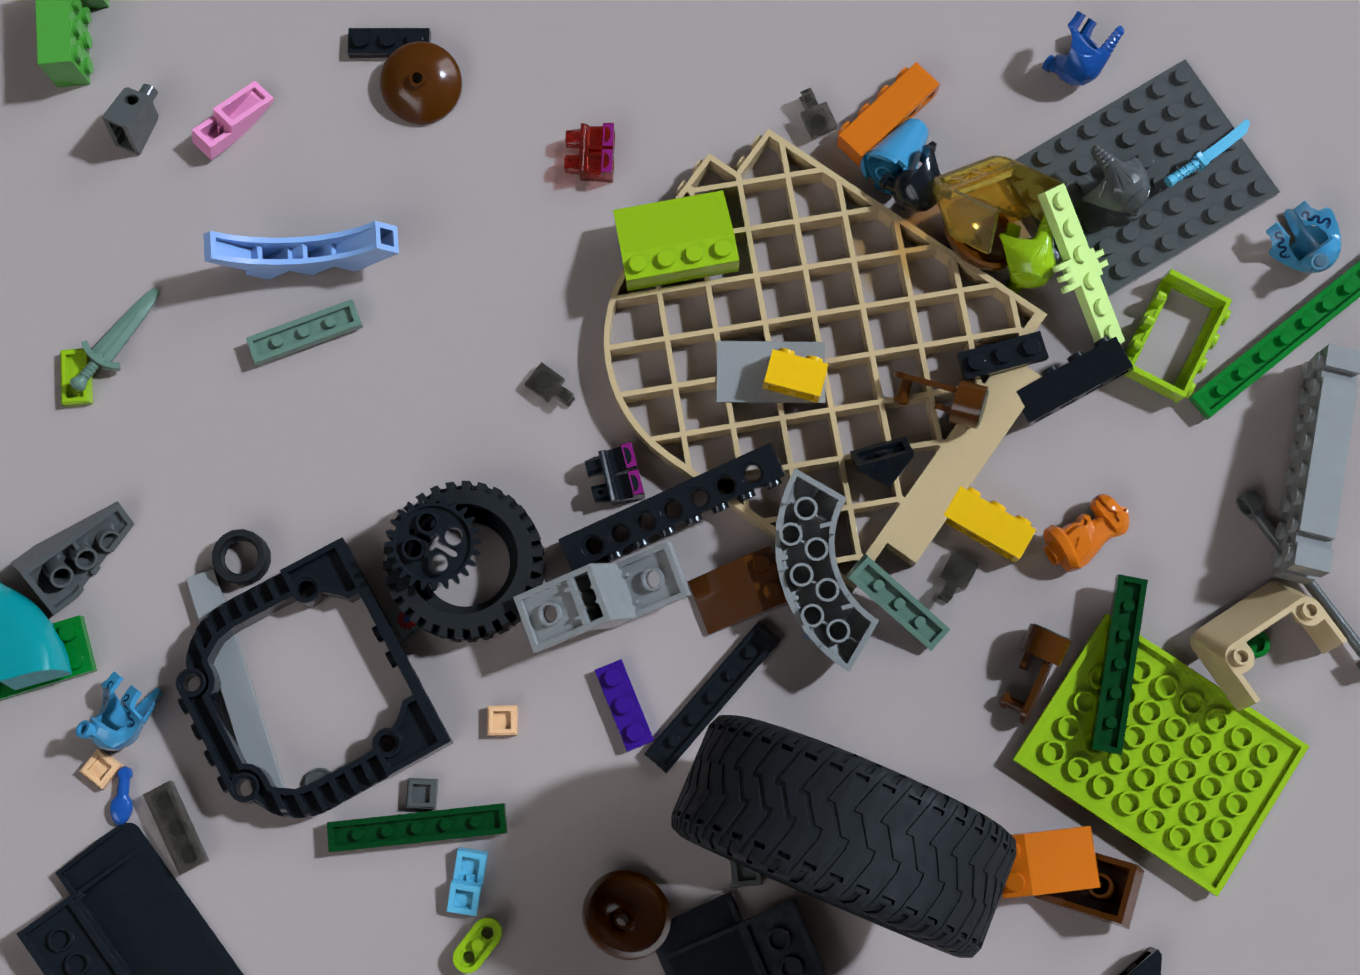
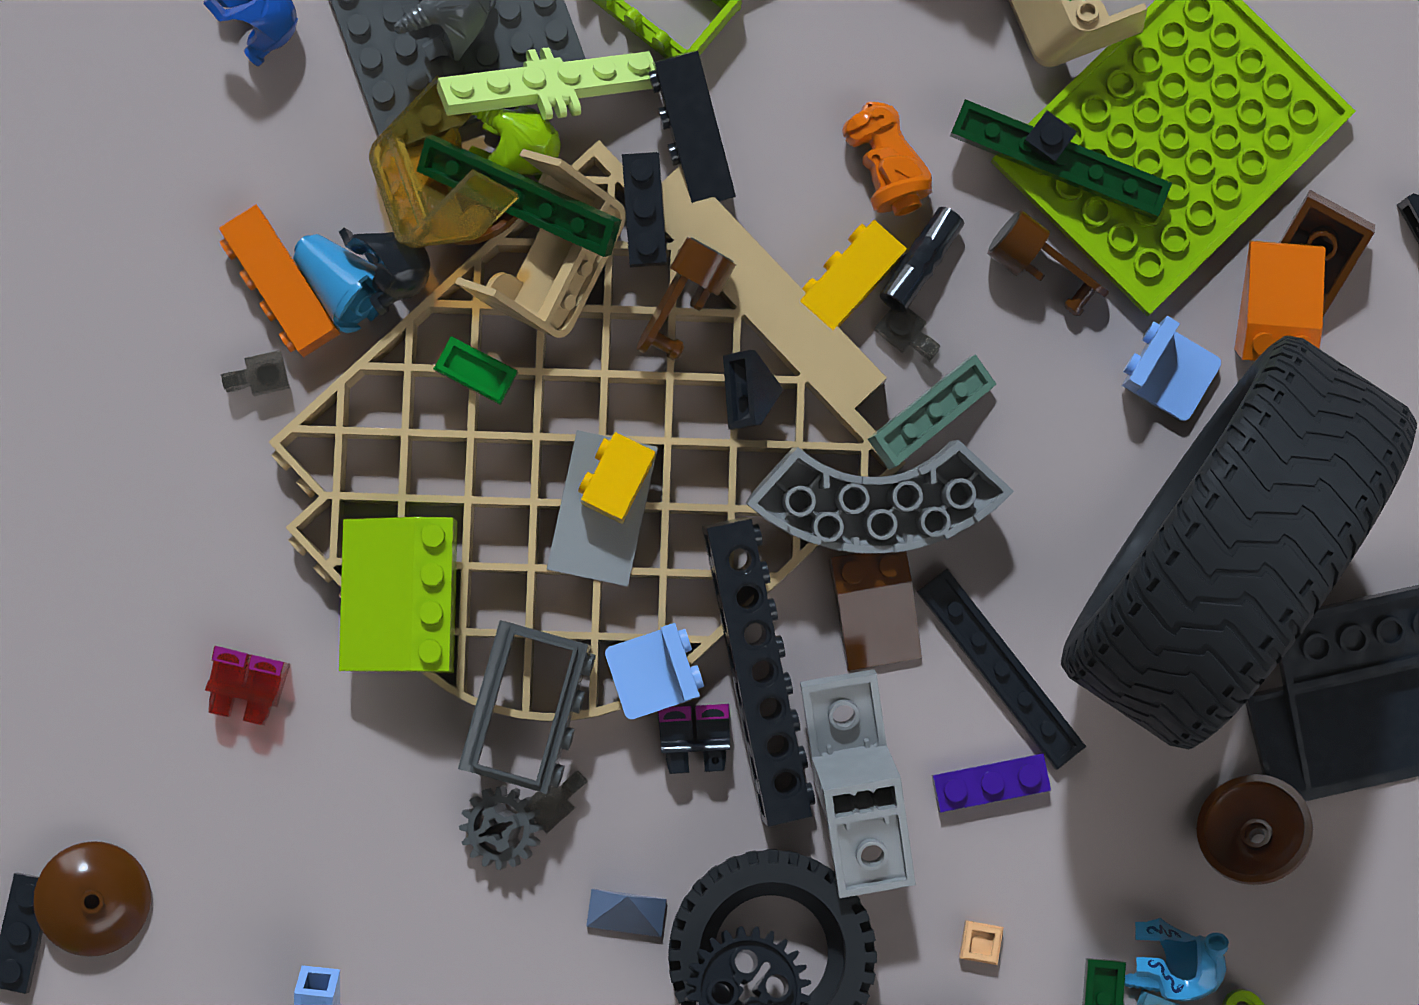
camera: 85 degrees left, 5 degrees up
(477, 454) = (626, 912): none -> sand blue slope
(513, 886) = (1192, 964): none -> dark azure piece
(515, 361) = (507, 840): none -> dark grey gear
(620, 373) = (560, 733): none -> dark grey window
(656, 431) = (654, 671): none -> light blue bracket
(852, 260) = (475, 370): none -> green tile
(952, 305) = (555, 272): none -> tan windscreen
(975, 779) = (1171, 370): none -> light blue bracket
(988, 268) = (535, 201): none -> dark green plate
(1014, 573) = (922, 259): none -> black axle
(1134, 650) = (1050, 137): none -> black plate

